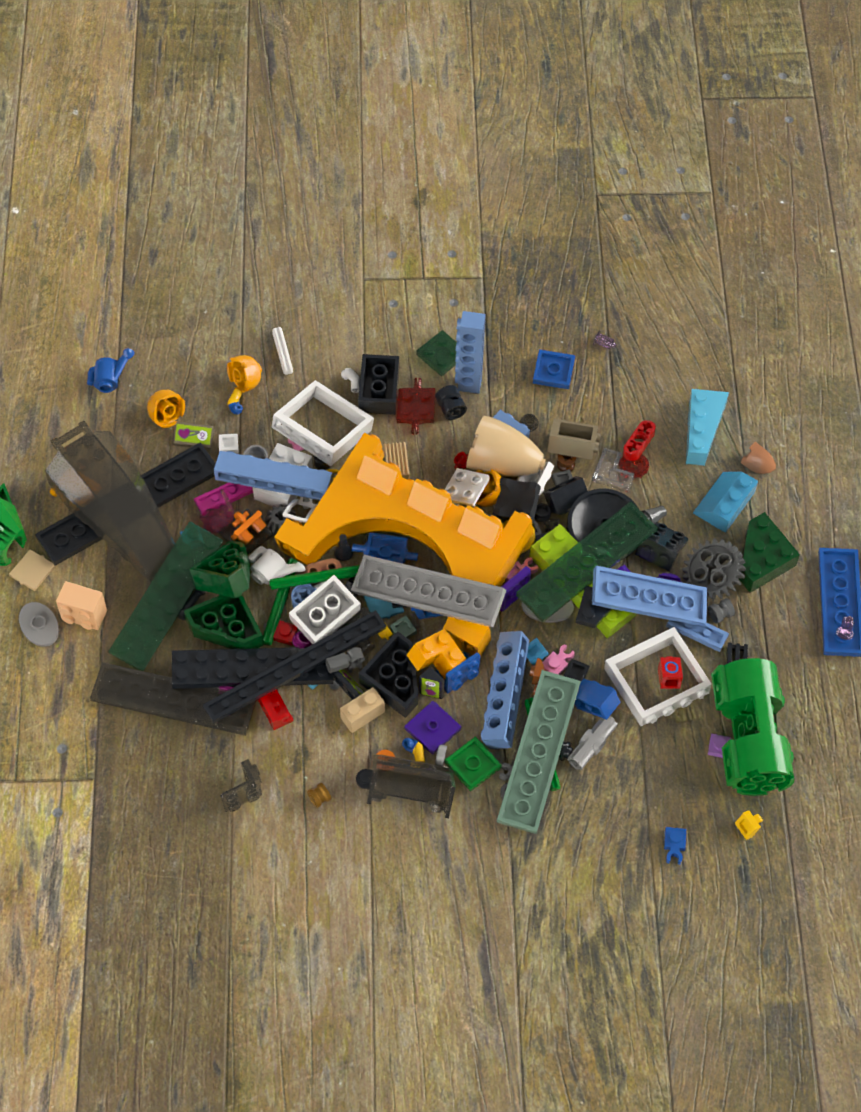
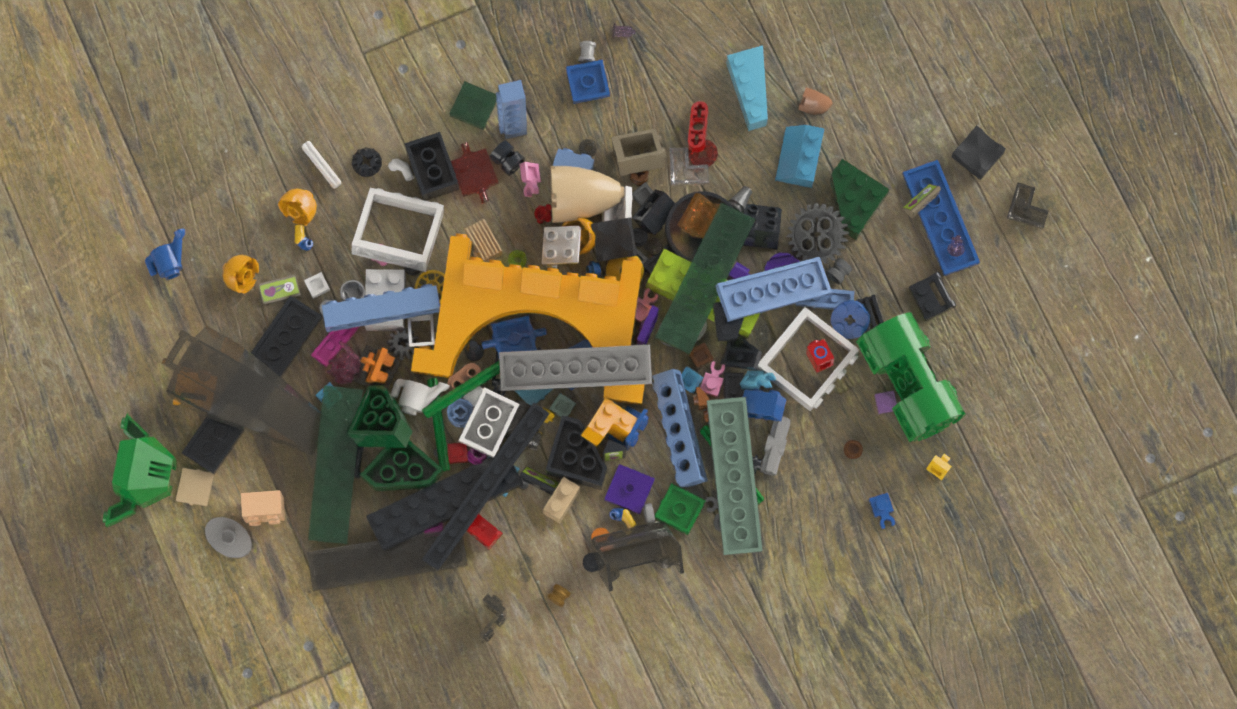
camera: 25 degrees left, 15 degrees up
(318, 368) = (365, 170): none -> black gear
(351, 660) = (534, 455): dark grey bar -> none
(466, 425) = (531, 176): none -> bright pink plate
(554, 634) = (701, 355): none -> reddish brown plate
(565, 343) = (587, 51): none -> light grey bush
(594, 646) = (741, 354): none -> black wing
(600, 674) = (755, 379): none -> medium azure plate
(603, 507) = (698, 216): none -> clear orange bracket
(668, 776) = (853, 449): none -> reddish brown plate
(710, 645) = (858, 312): none -> blue plate
(798, 671) = (926, 298): none -> black plate
(828, 577) = (921, 200): none -> dark tan slope

